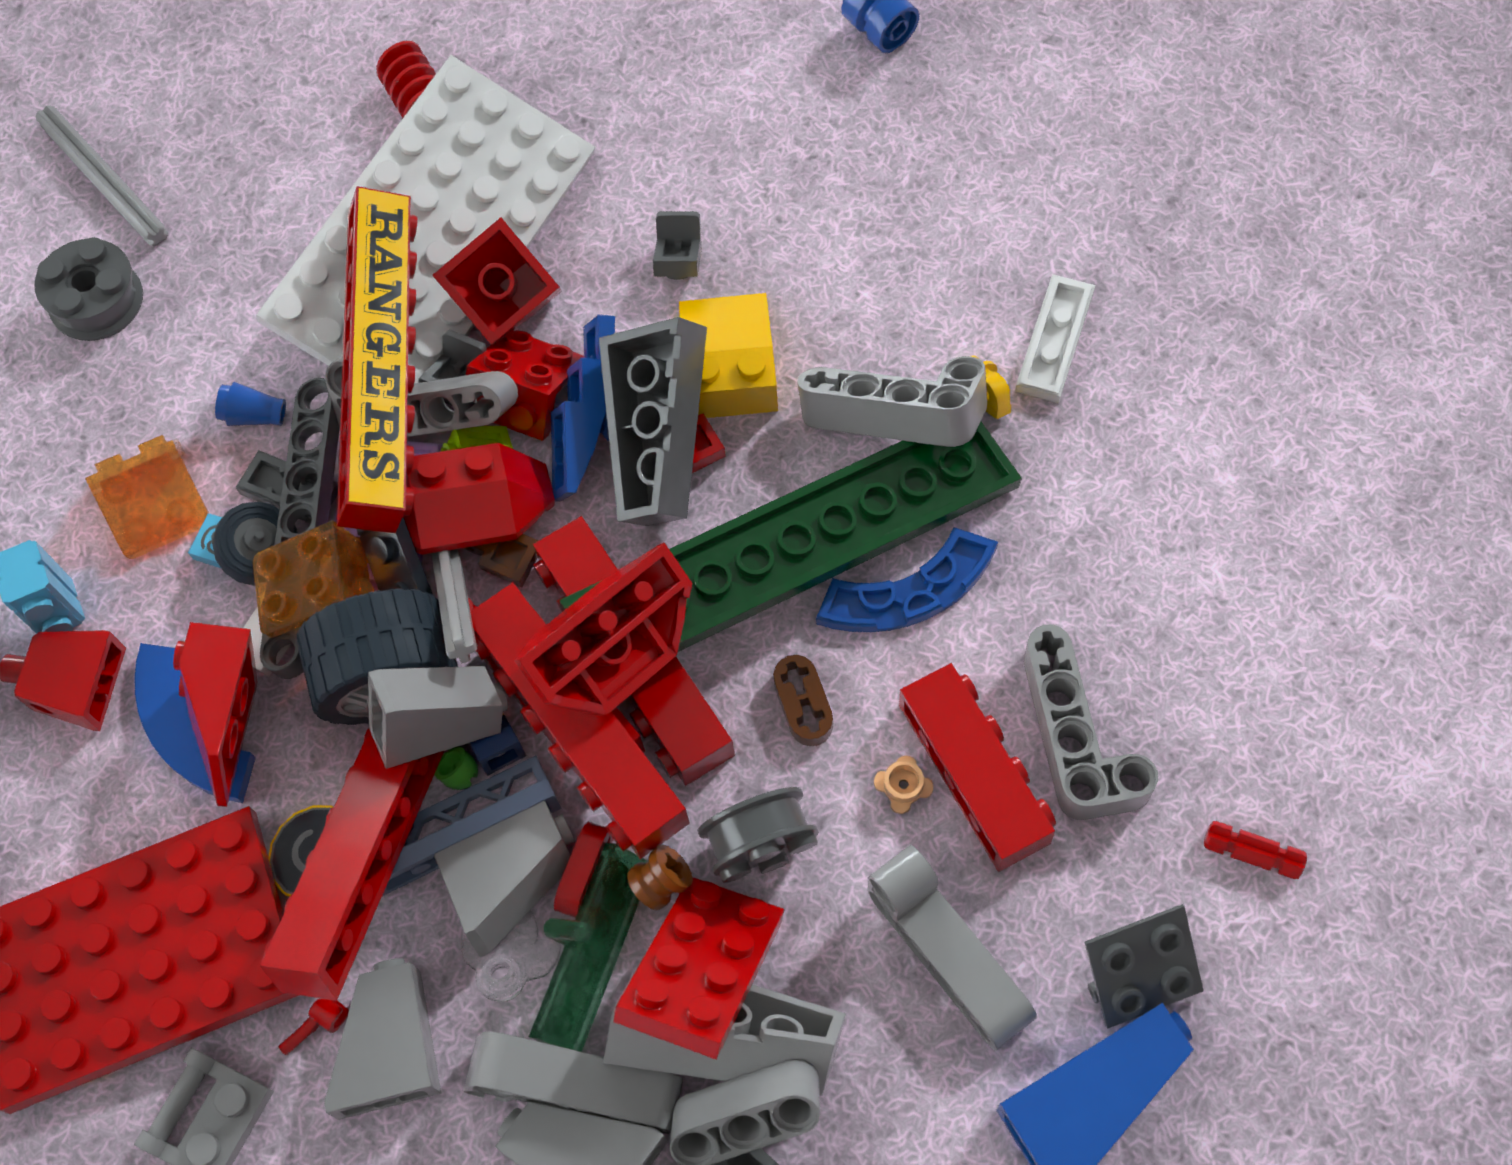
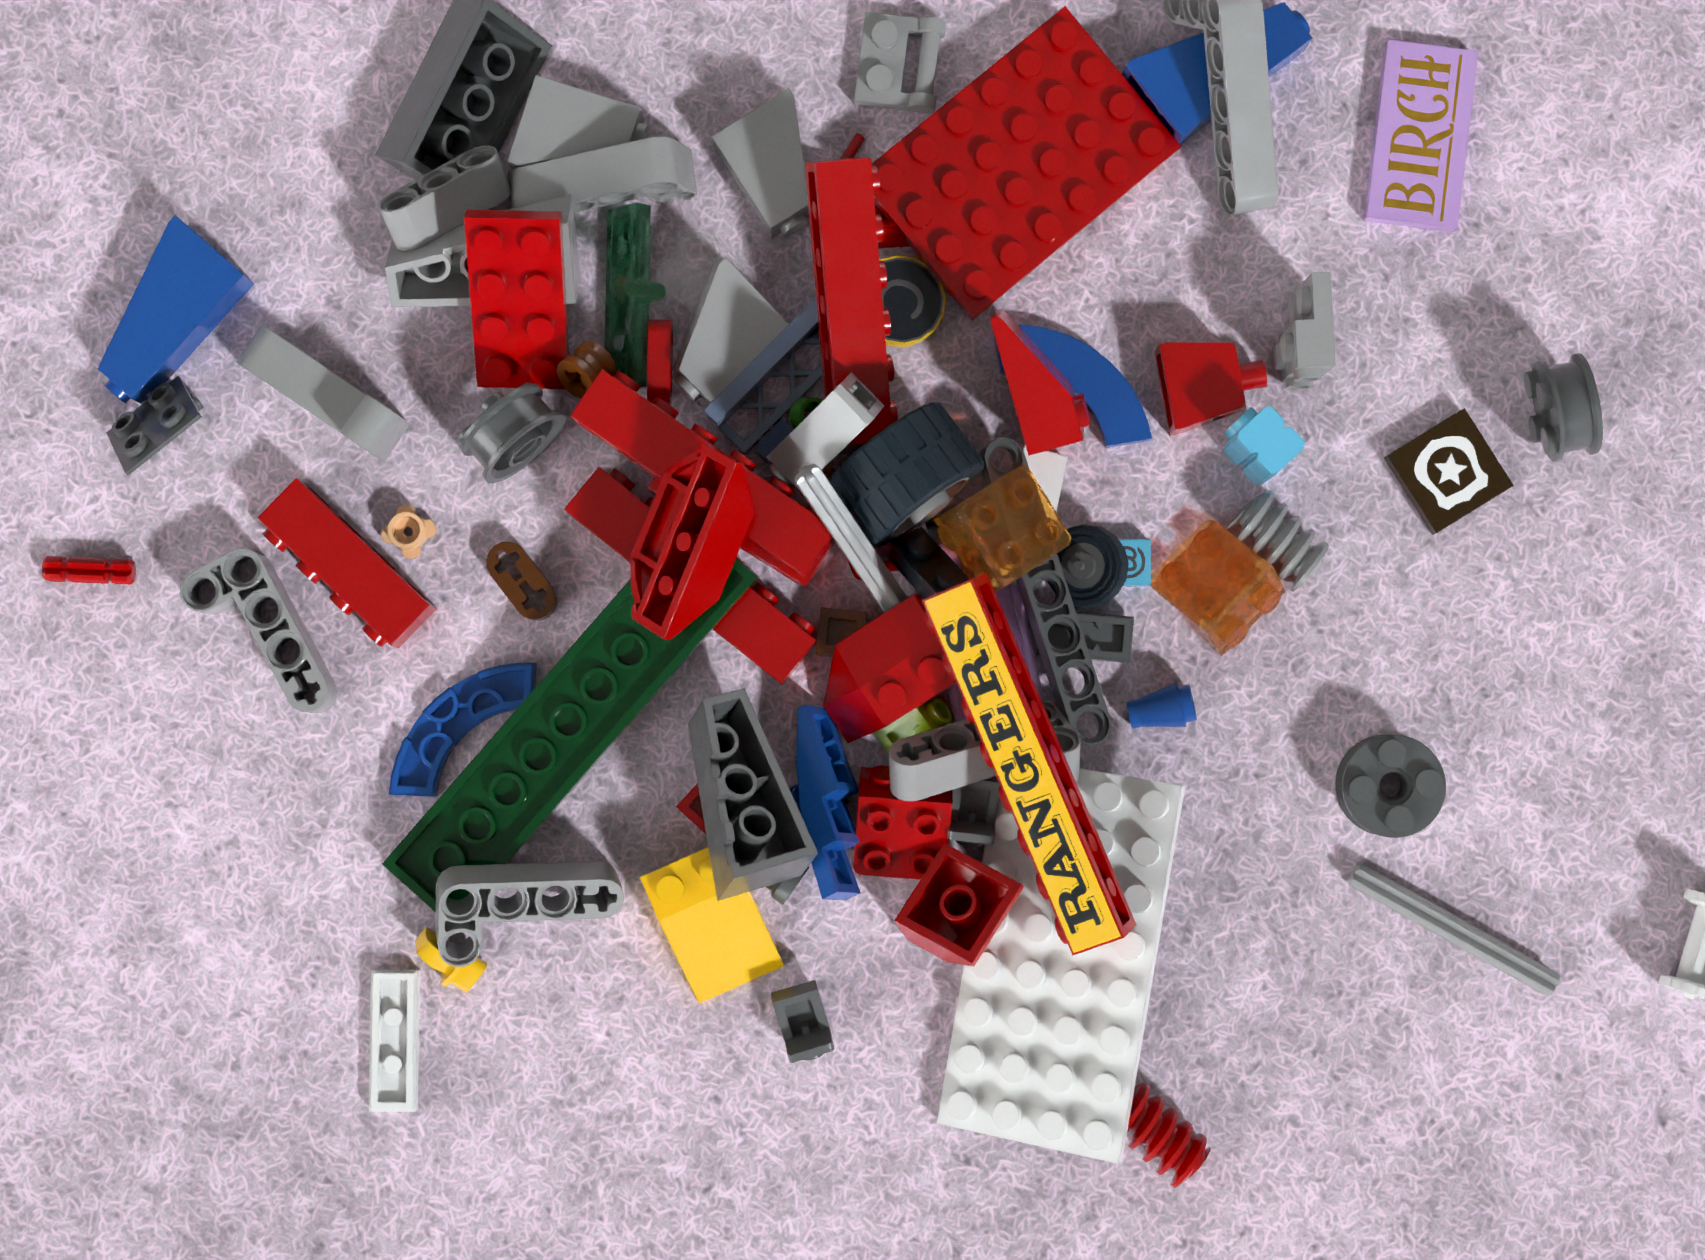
camera: 155 degrees right, 20 degrees up
(71, 513) = (1280, 538): none -> light grey piece

